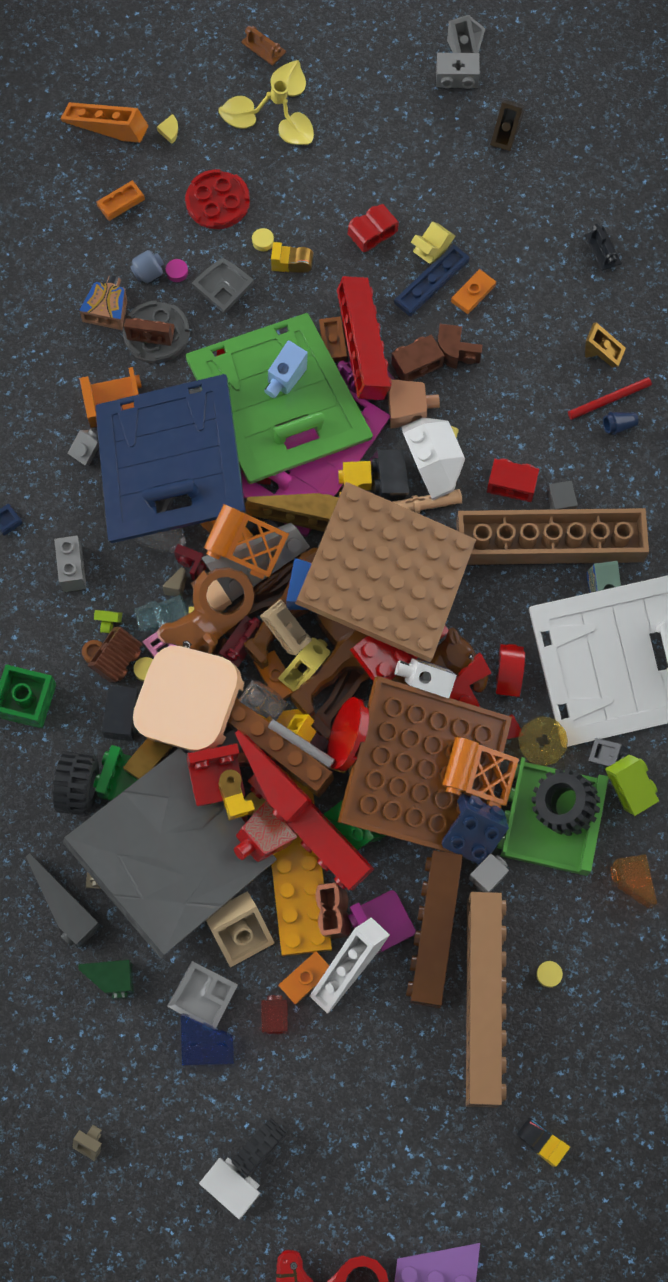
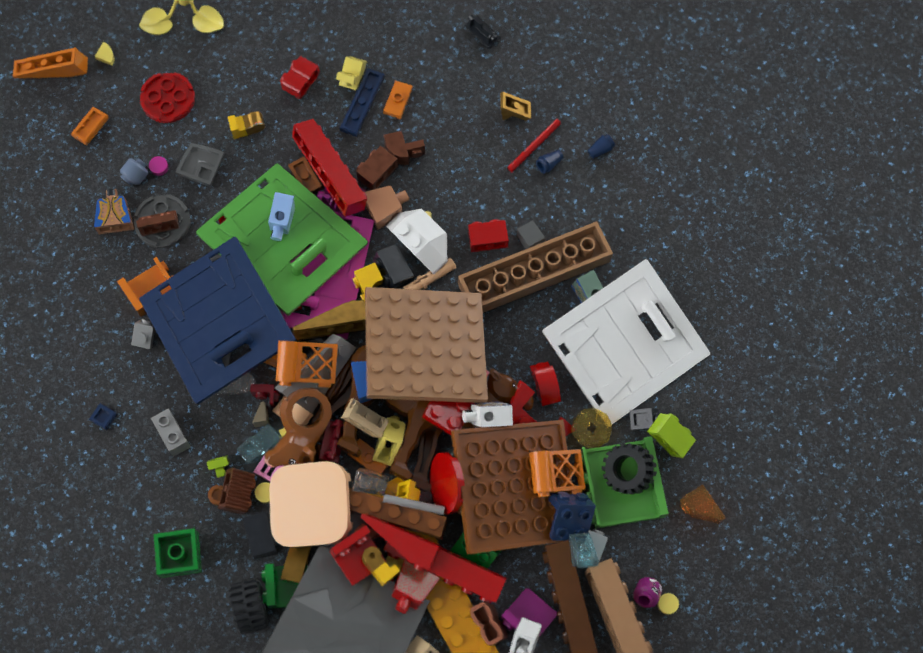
camera: 25 degrees left, 0 degrees up
(262, 239) = (217, 117): light yellow tile -> none
(472, 872) = (583, 550): none -> clear light blue slope
(529, 951) = (647, 592): none -> magenta head

